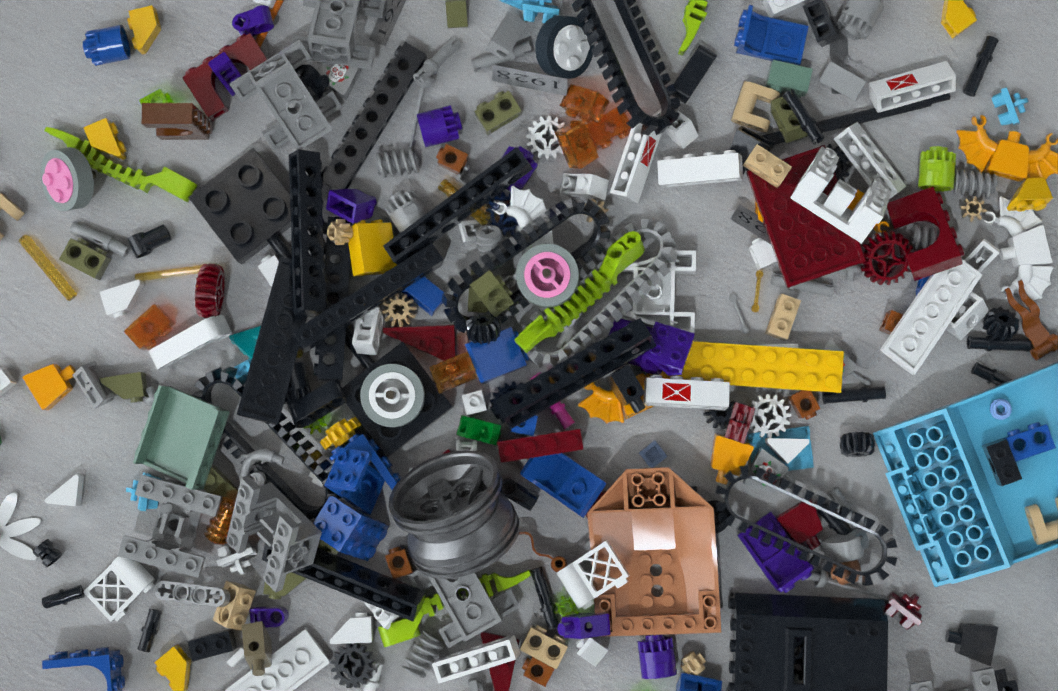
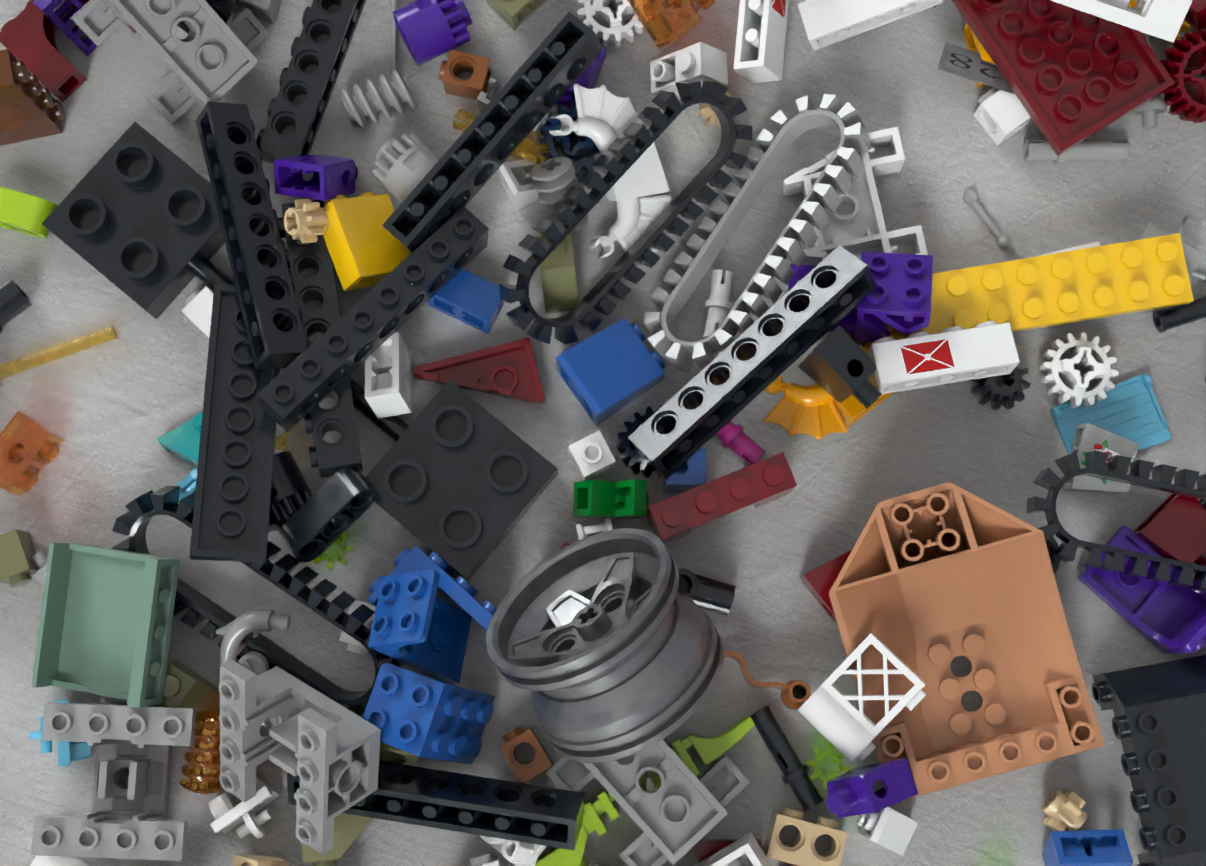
camera: 20 degrees left, 5 degrees down
(190, 340) = (91, 459): white beam -> none
(209, 290) = (108, 368): dark red gear -> none
(340, 433) = (377, 555): yellow gear -> none
(392, 395) = (452, 467): wheel -> none
(397, 317) = (433, 321): tan gear -> none
(453, 372) = (546, 409): clear orange brick -> none
(483, 328) = (580, 324): black gear -> none
(493, 293) = (582, 264): olive brick -> none
(547, 275) = (667, 214): wheel -> none
(564, 481) = (775, 550): blue bracket -> none
(618, 258) = (774, 166): lime piece -> none
(652, 454) = (906, 474): sand blue plate -> none
(656, 657) = (1002, 815): dark purple gear -> none
(728, 455) = (1030, 447): light orange torso -> none
(740, 422) = (1040, 387): dark red hips -> none
(755, 308) = (1010, 204): clear yellow hinge -> none
(782, 317) = (1060, 206): tan brick -> none
(787, 448) = (1123, 414): white slope -> none
(795, 400) = (1116, 337): dark orange brick -> none

